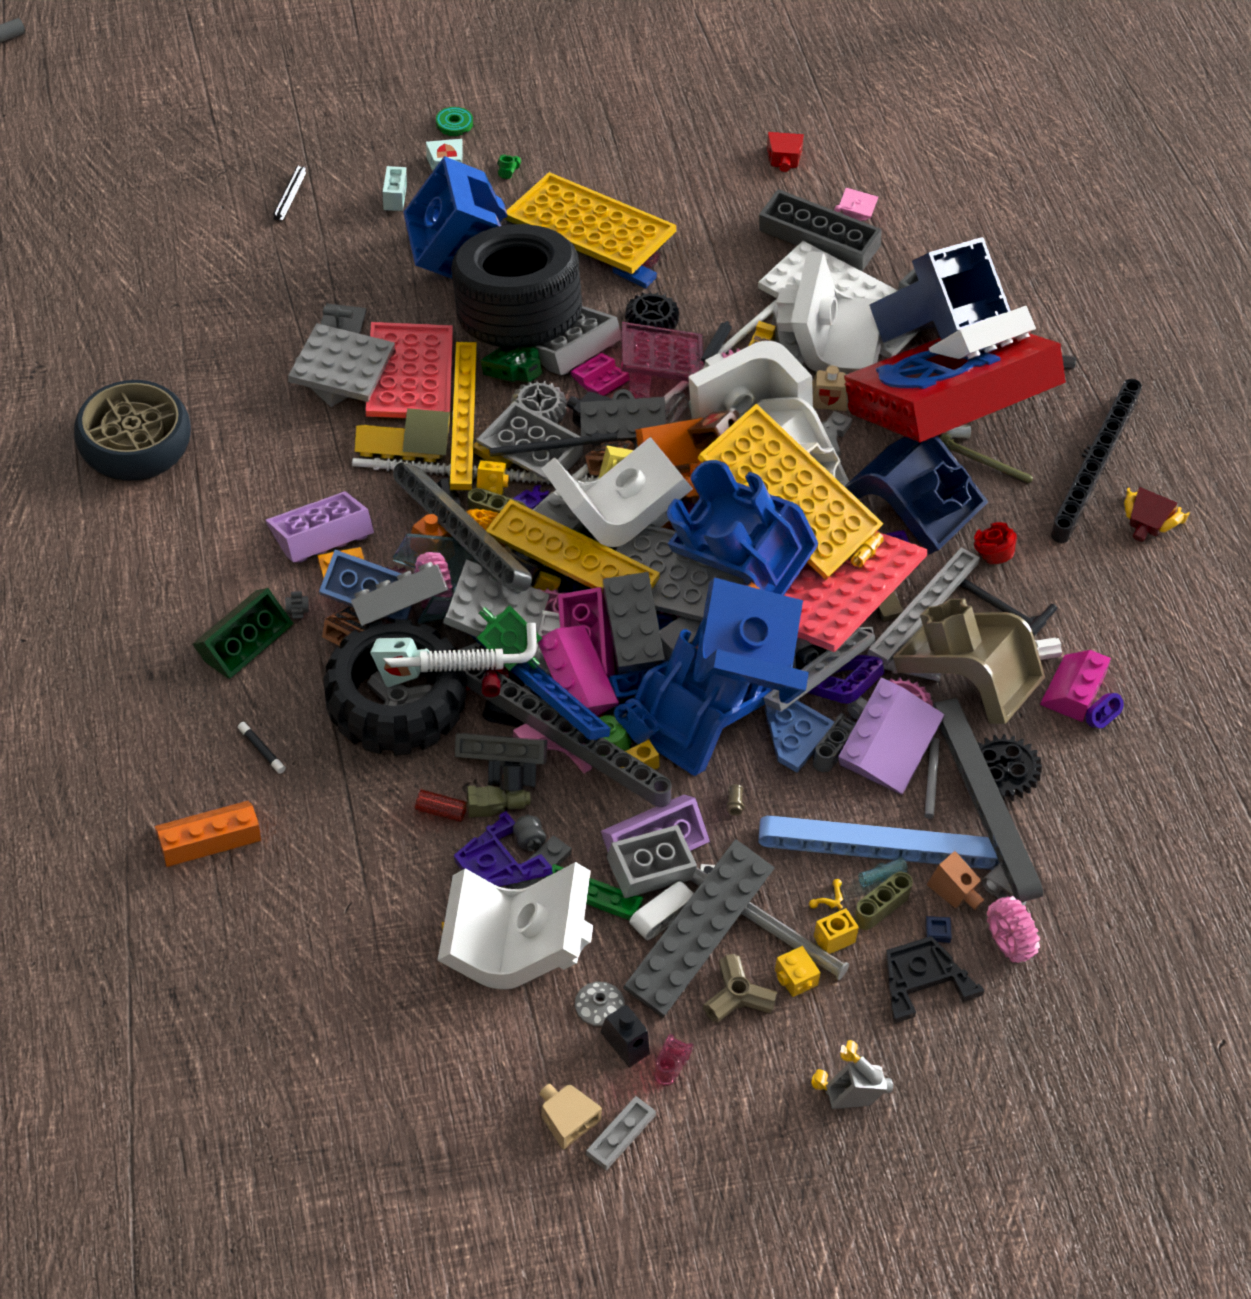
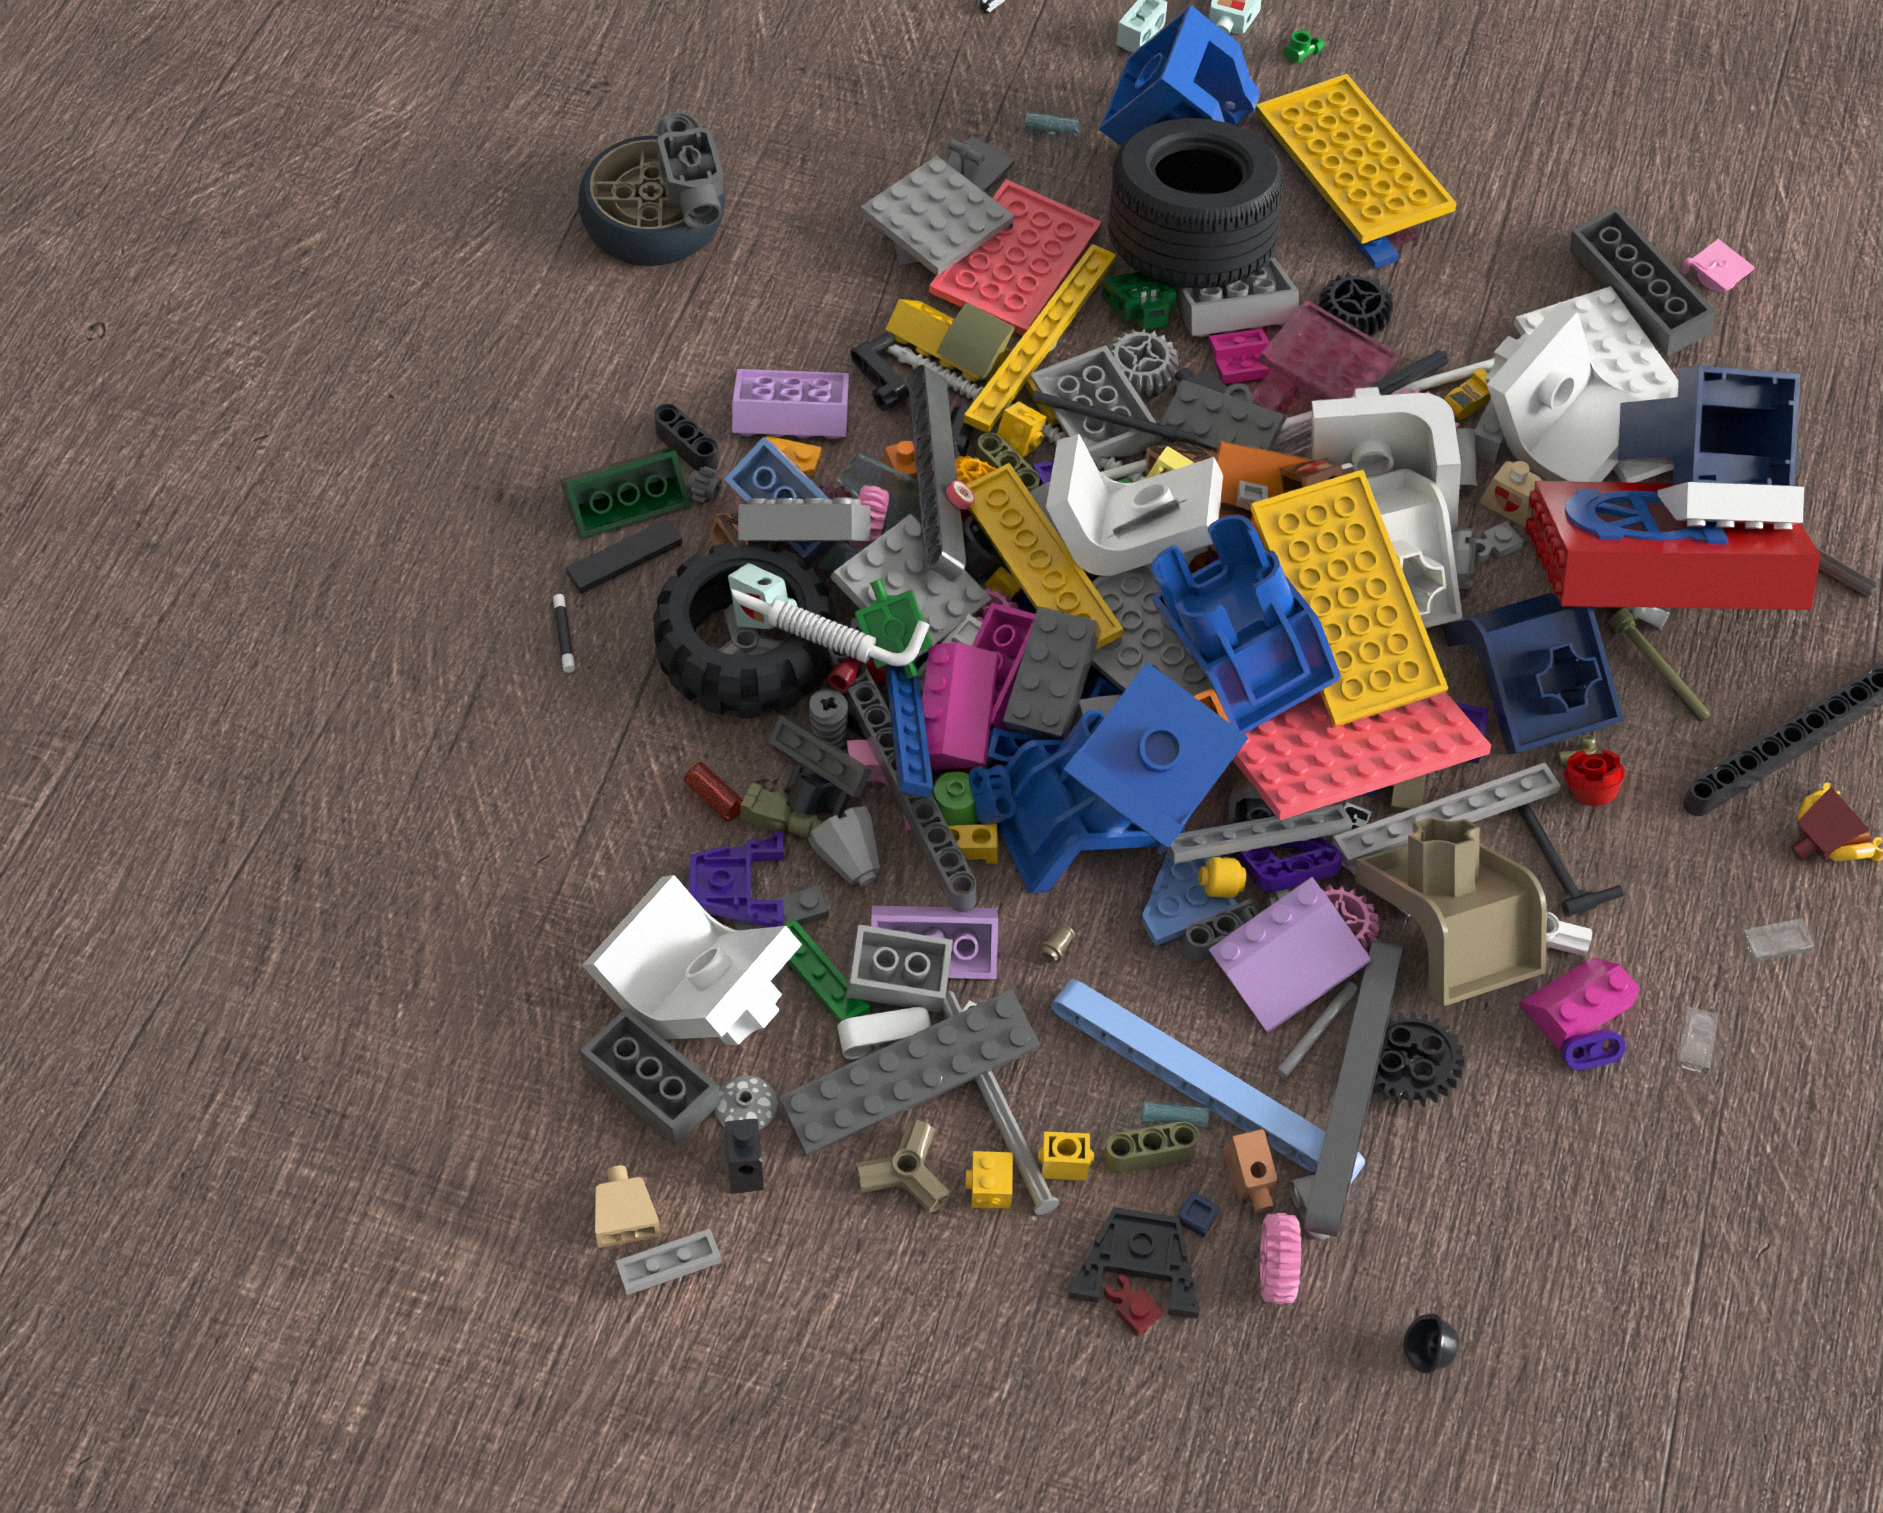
camera: 30 degrees right, 5 degrees up
(157, 393) = (690, 168): none -> dark grey brick
(208, 833) = (443, 703): orange slope -> none
(255, 576) = (685, 437): none -> black beam
(269, 677) = (623, 556): none -> black tile
(376, 275) = (1052, 123): none -> clear light blue pin
(380, 487) = (889, 388): none -> black beam
(491, 717) = (829, 716): none -> dark grey piece
(493, 533) = (960, 495): none -> coral tile
(528, 1015) = (650, 1077): none -> dark grey brick
(529, 832) = (791, 869): dark grey piece -> none
(560, 799) = (848, 845): none -> light grey cone
(646, 480) = (1144, 517): none -> black piece
(672, 1056) = (784, 1203): clear pink piece -> none
(679, 456) = (1249, 493): none -> light grey plate
(784, 150) = (1673, 159): red torso -> none
(816, 707) = (1222, 877): none -> yellow head
(831, 903) = (1112, 1101): yellow piece -> none
(856, 1083) = (962, 1341): light grey torso -> none
(867, 550) = (1410, 712): yellow pin -> none
(941, 1008) = (1135, 1308): none -> dark red plate
(968, 540) = (1586, 742): none -> olive arm
(1134, 937) = (1430, 1343): none -> black helmet
(1158, 677) = (1697, 1040): none -> clear plate
(1163, 595) = (1777, 940): none -> clear plate

